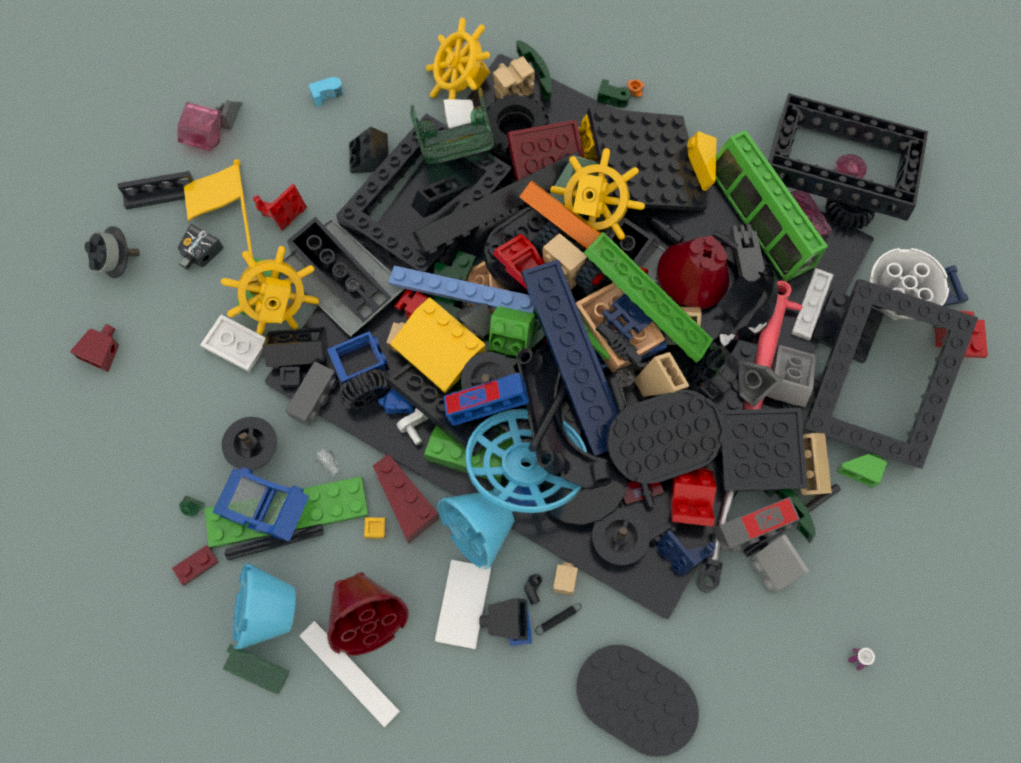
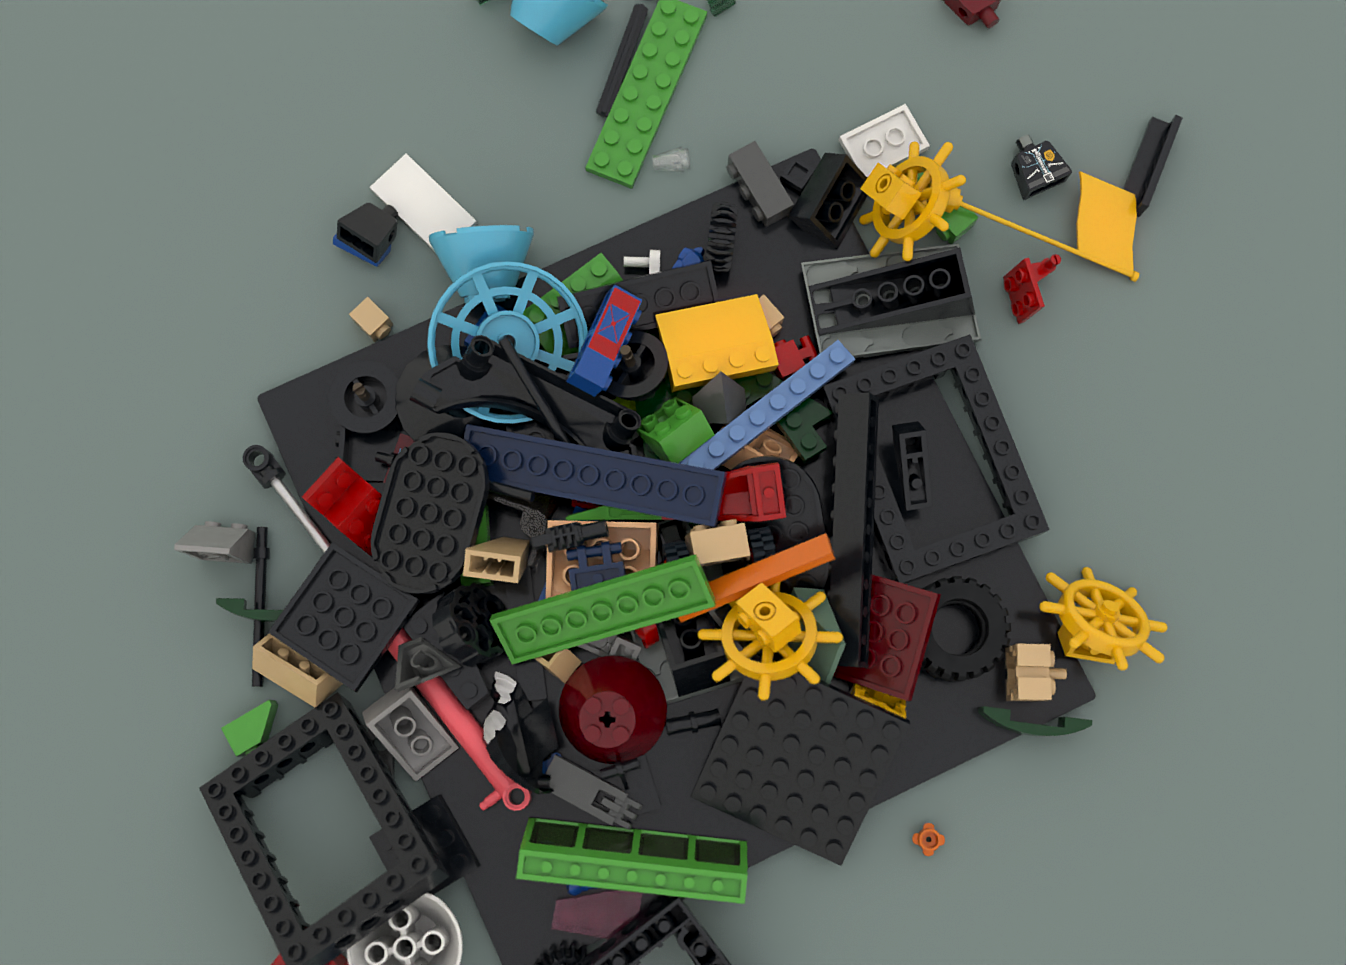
camera: 120 degrees right, 10 degrees up
(108, 252) = (1089, 61): black piece -> none
(199, 127) = (1208, 252): clear pink slope -> none
(228, 114) = (1216, 300): dark grey slope -> none
(249, 443) = (744, 86): black piece -> none
(261, 504) = (665, 60): blue window -> none
(325, 89) = (1177, 439): medium azure leg -> none
(350, 675) = (435, 56): white tile -> none
(352, 345) = (772, 231): blue window -> none
(363, 616) = (478, 91): dark red cone -> none
(368, 150) = (1047, 437): black slope -> none
(375, 527) = (566, 167): yellow tile -> none
(408, 503) = (574, 211): dark red wedge -> none
(456, 141) = (979, 529): clear green windscreen -> none
(457, 112) = (1022, 577): white torso -> none
(531, 587) = (389, 281): black arm -> none
(560, 617) = (339, 289): black piece -> none
(613, 95) = (934, 799): dark green leg -> none
(637, 700) = (205, 312): black plate -> none
(681, 558) = (292, 454): dark blue plate -> none
(703, 158) = (756, 837): yellow slope -> none
(755, 524) = (274, 552): dark grey brick -> none
(812, 304) = (479, 829): white tile -> none
(864, 656) = (68, 564): white piece -> none

